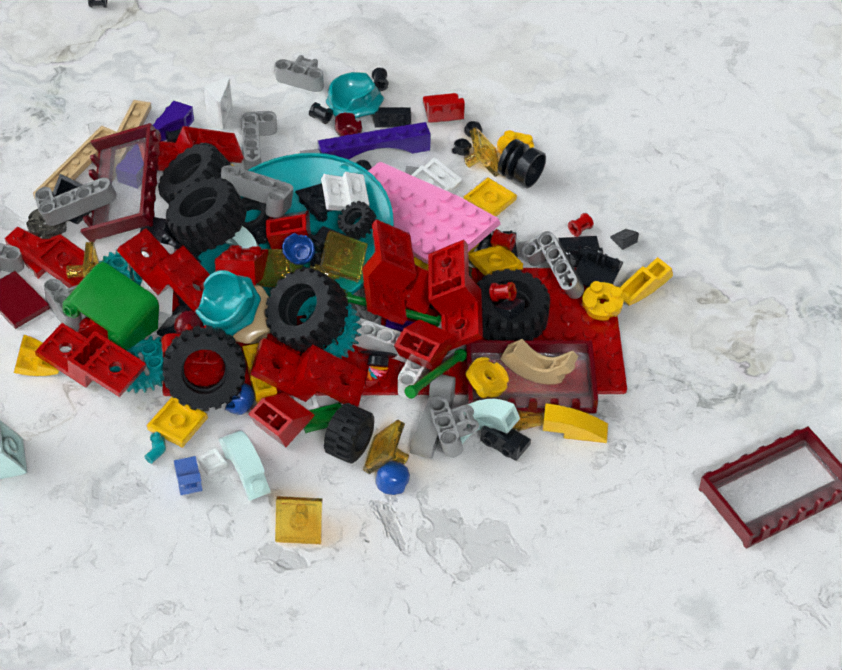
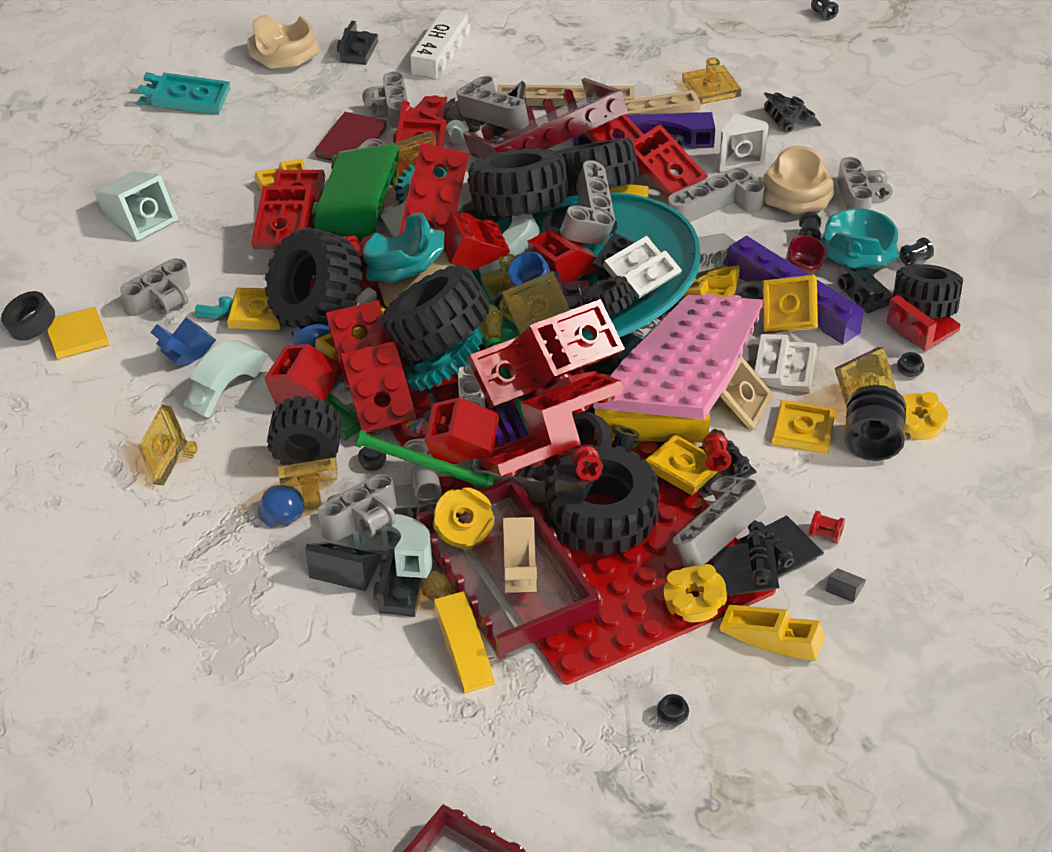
camera: 65 degrees right, 5 degrees down
(68, 233) = (455, 131): none -> light aqua plate
(71, 550) = (34, 324): none -> black tyre
(111, 473) = (157, 288): none -> light grey piece
(114, 543) = (77, 333): none -> yellow tile
(127, 88) = (712, 83): none -> clear yellow tile
(188, 65) = (787, 111): none -> black hinge
(276, 95) = (798, 181): none -> tan piece
(379, 411) = (371, 459): none -> black plate
(394, 149) = (790, 304): none -> yellow plate
(425, 87) = (929, 289): none -> black tyre
(472, 461) = (341, 564): none -> black slope
(675, 350) = (673, 709): none -> black plate

